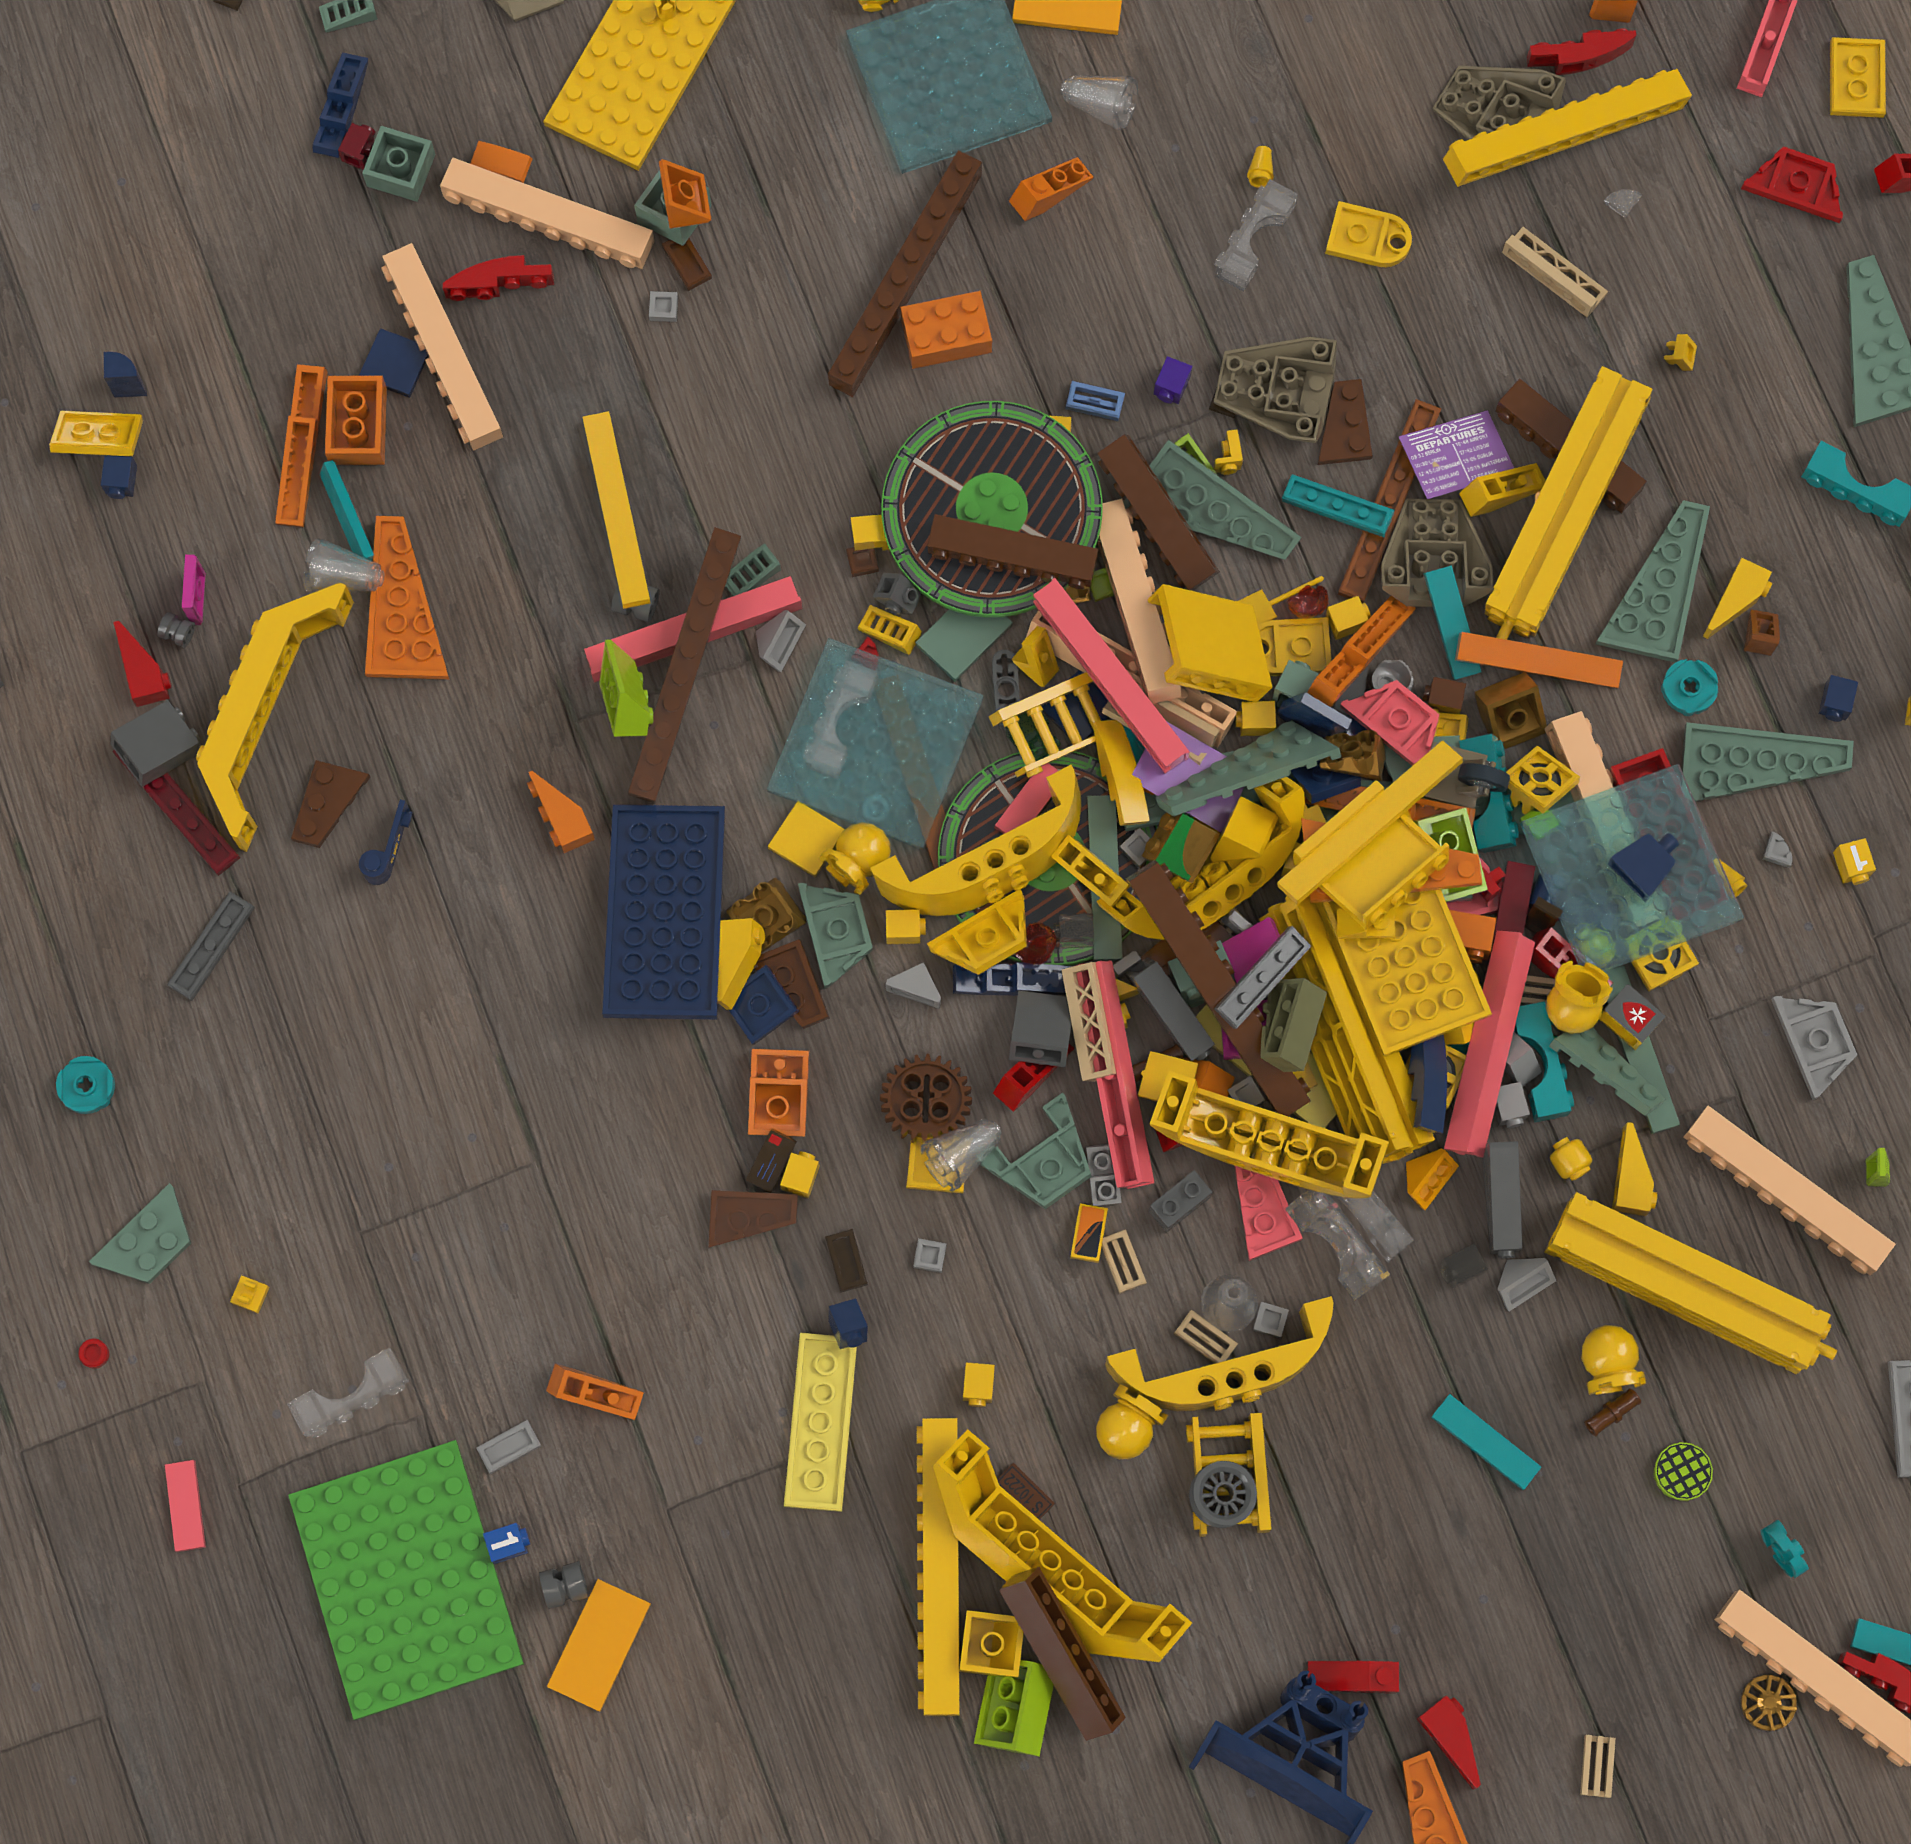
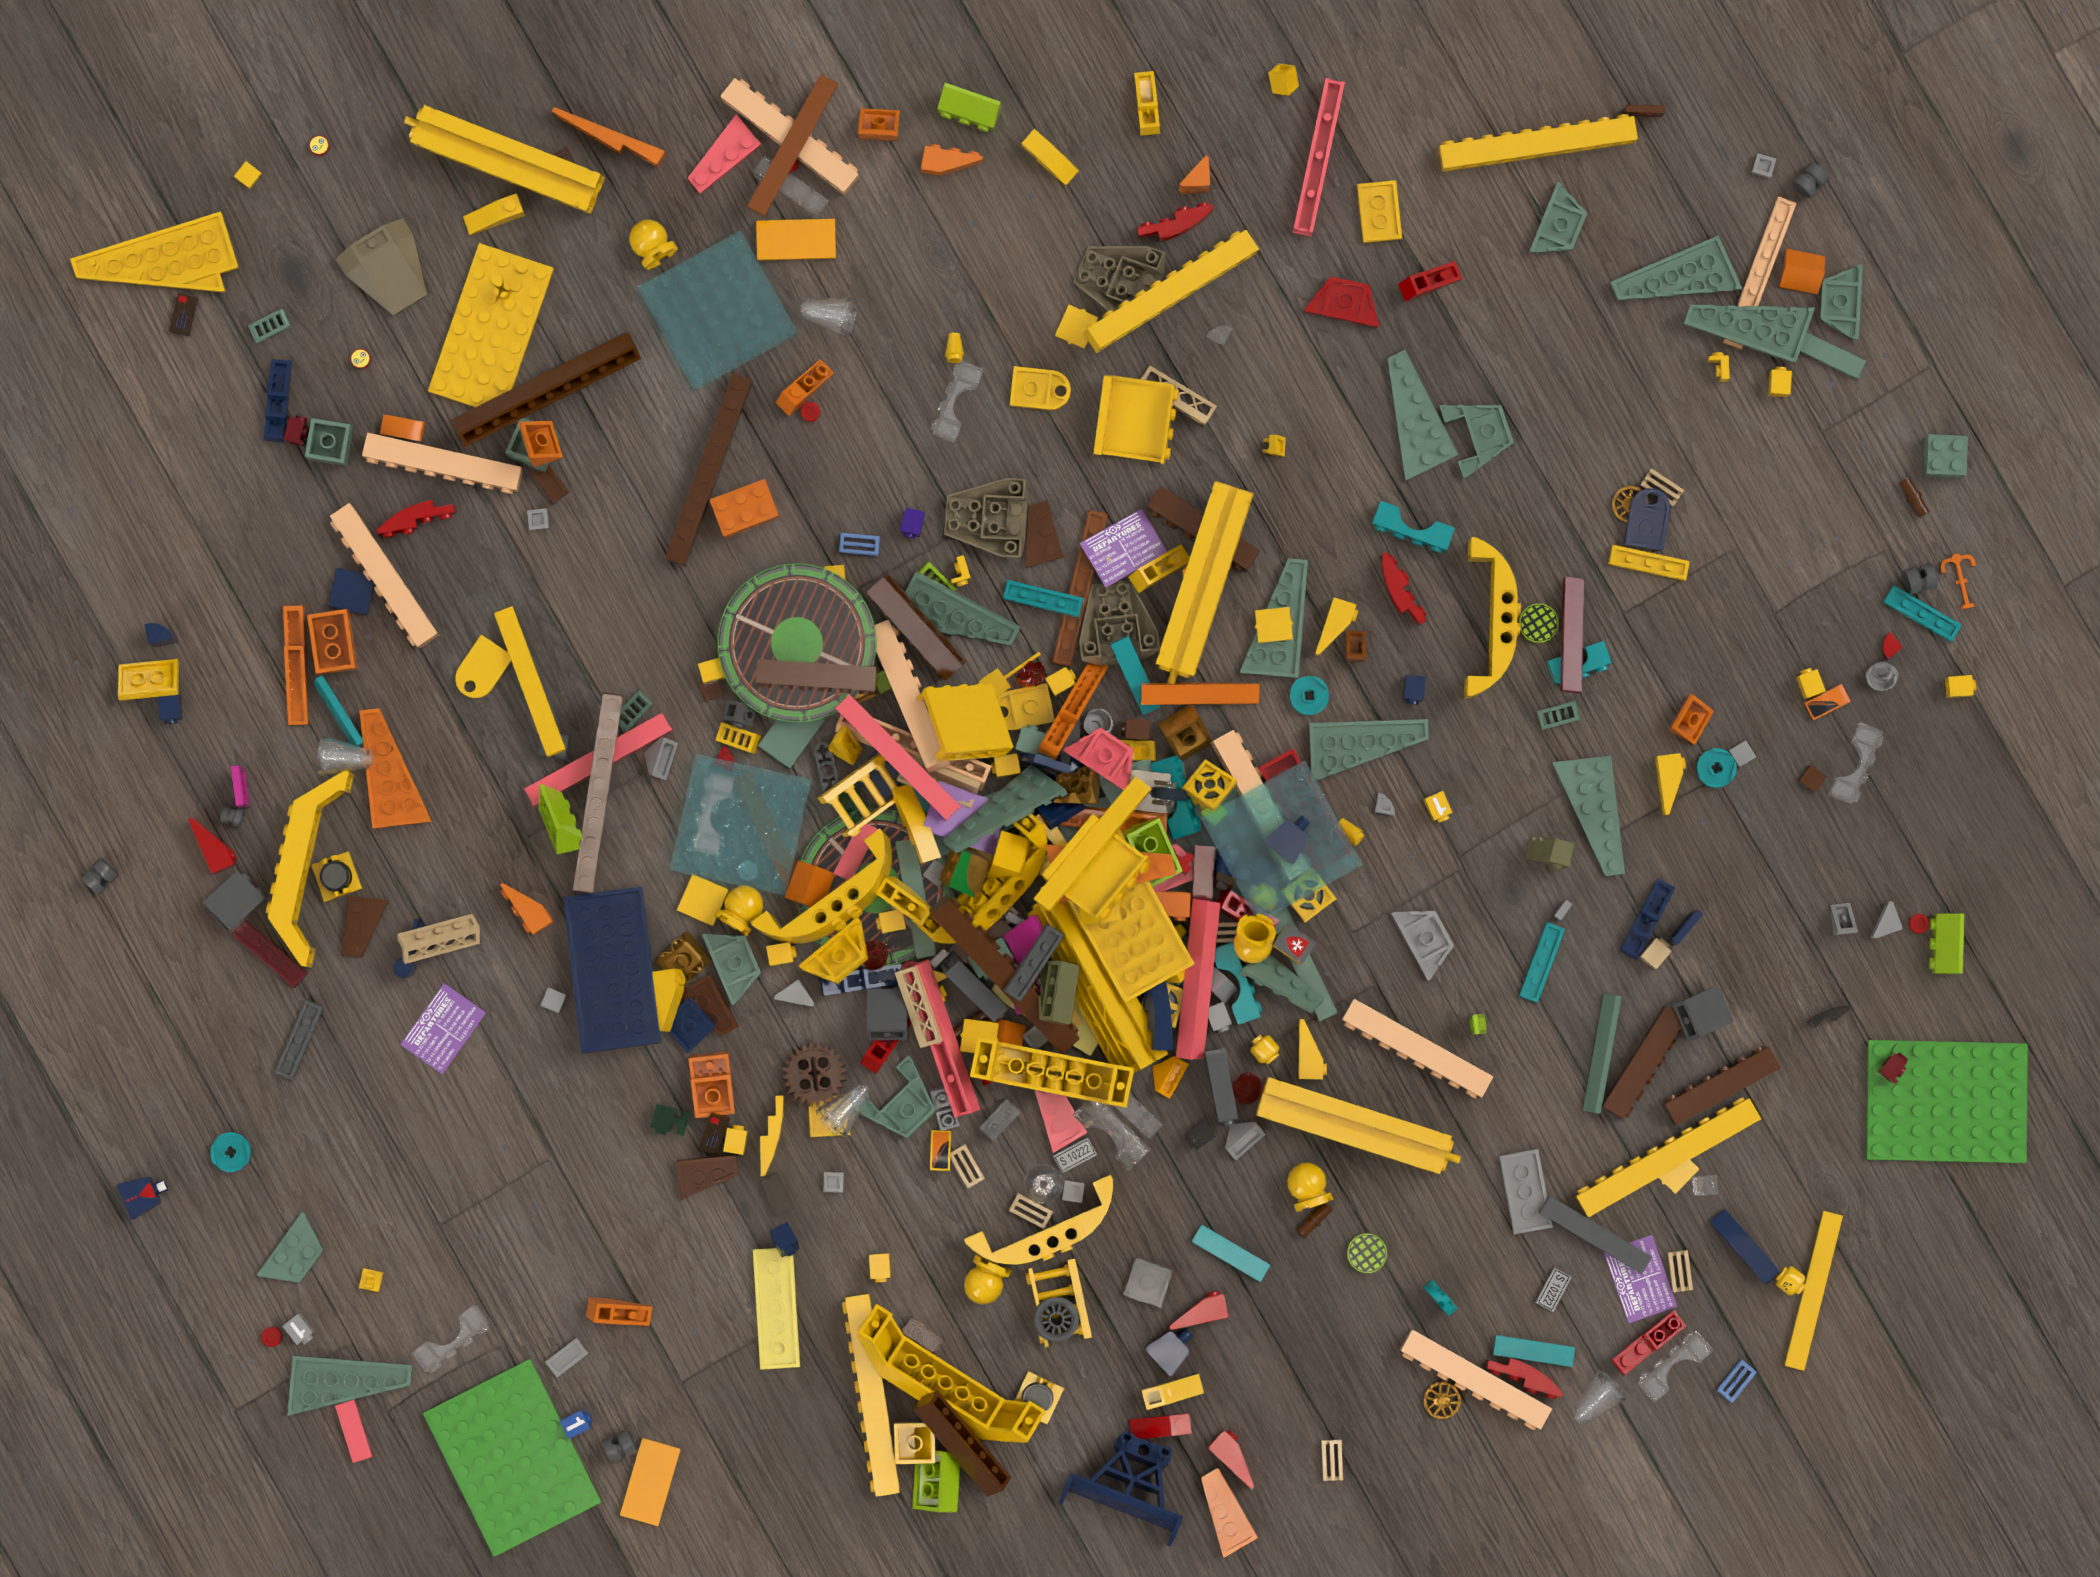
camera: 10 degrees left, 10 degrees up
(134, 1347) = (299, 1329): none -> light grey brick
(164, 1429) = (330, 1381): none -> sand green wing
(304, 732) = (336, 876): none -> piece
(414, 961) = (443, 1028): none -> medium lavender sticker
(432, 826) = (439, 934): none -> tan fence
(461, 69) = (360, 359): none -> tile
(555, 485) = (483, 666): none -> yellow tile
(575, 944) = (553, 1000): none -> light grey tile
(702, 135) = (545, 389): none -> reddish brown brick
(705, 1129) = (665, 1118): none -> clear green brick
(848, 1184) = (769, 1143): none -> yellow slope
(958, 832) = (809, 884): none -> orange slope
(1054, 221) = (810, 412): none -> red tile
(1066, 900) = (890, 921): none -> yellow brick
(1187, 1598) = (1040, 1394): none -> piece
(1279, 1269) = (1074, 1155): none -> light grey tile
(1361, 1466) = (1148, 1282): none -> tile
(1376, 1628) = (1172, 1391): none -> yellow slope
(1381, 1567) = (1170, 1350): none -> torso
(1426, 165) = (1074, 325): none -> yellow piece
(1441, 1518) = (1206, 1310): none -> slope
(1497, 287) = (1135, 418): none -> yellow panel
(1539, 1210) = (1247, 1088): none -> clear red hair
(1653, 584) = (1273, 624): none -> yellow piece
(1827, 555) = (1395, 583): none -> red slope

